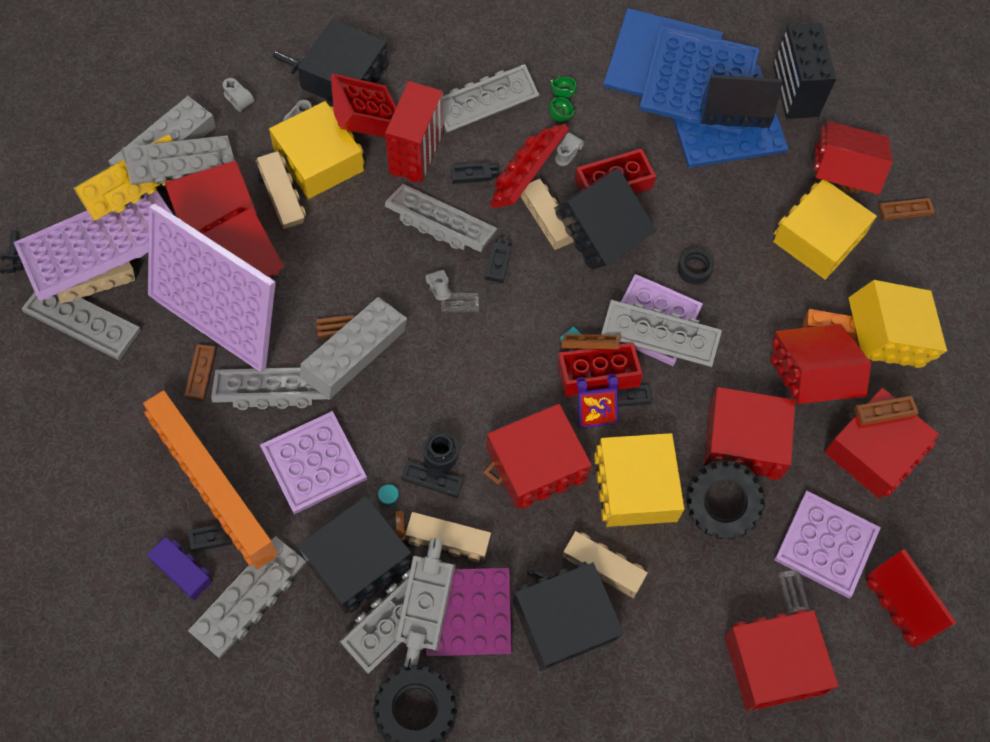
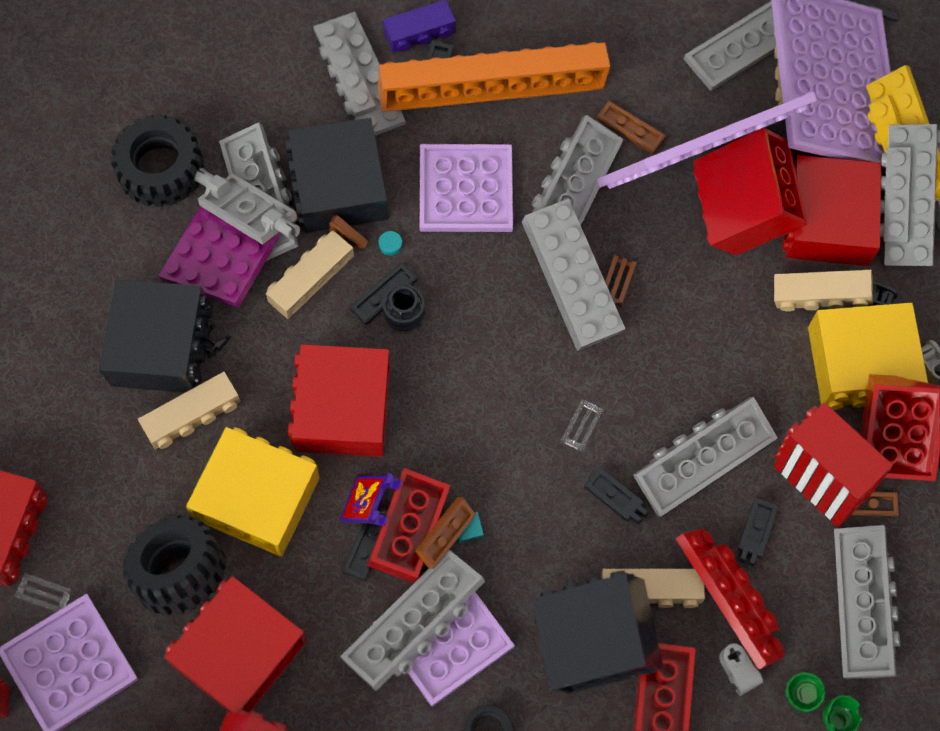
camera: 120 degrees right, 5 degrees up
(439, 285) = (613, 408): light grey piece -> none

